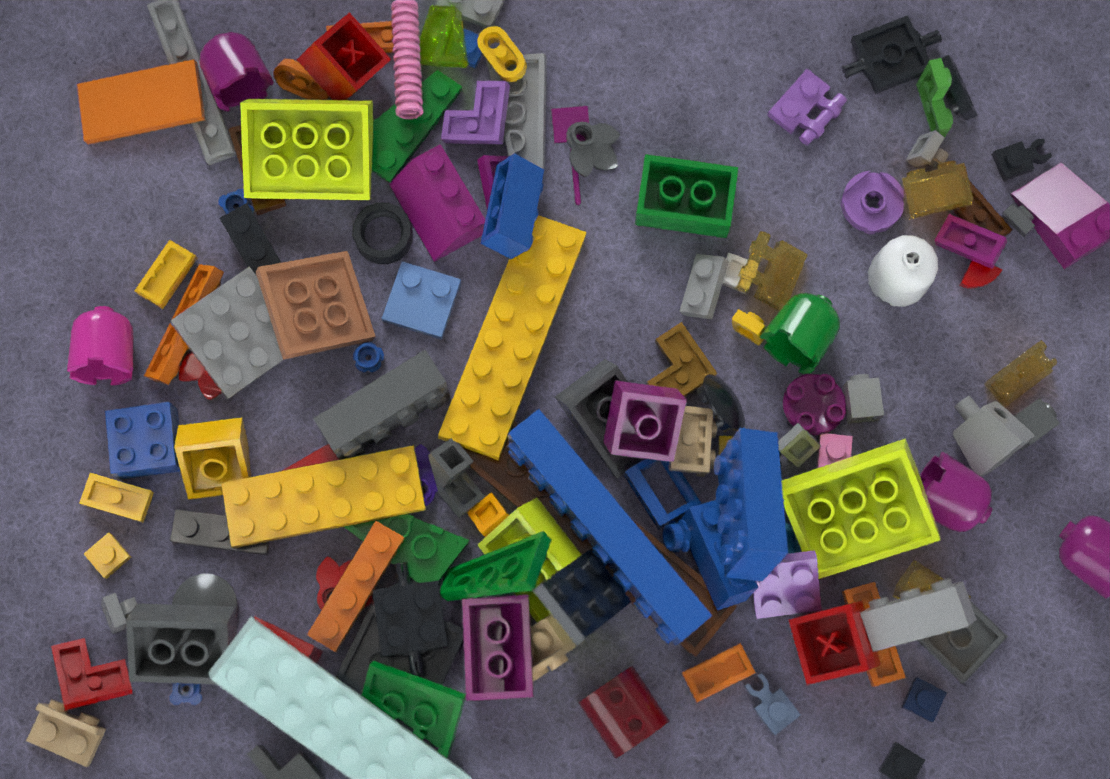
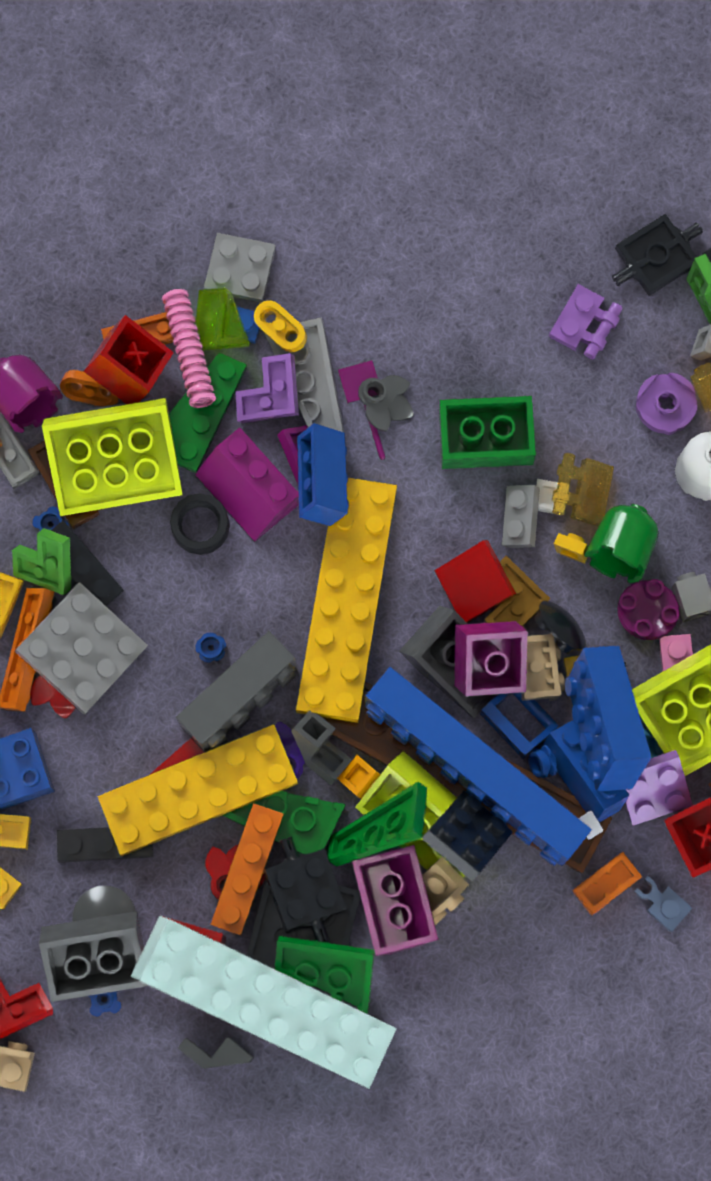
camera: 10 degrees left, 0 degrees up
(117, 612) = (22, 939): light grey tile -> none
(212, 455) = (81, 772): yellow slope -> none
(222, 243) = (46, 566): none -> bright green plate
(315, 304) = (150, 606): nougat plate -> none
(421, 300) = (250, 582): medium blue plate -> none
(624, 712) = (525, 938): dark red brick -> none
(645, 342) = (475, 581): none -> red tile
(713, 606) = (591, 821): none -> white sticker
(798, 445) = (640, 652): light grey plate -> none

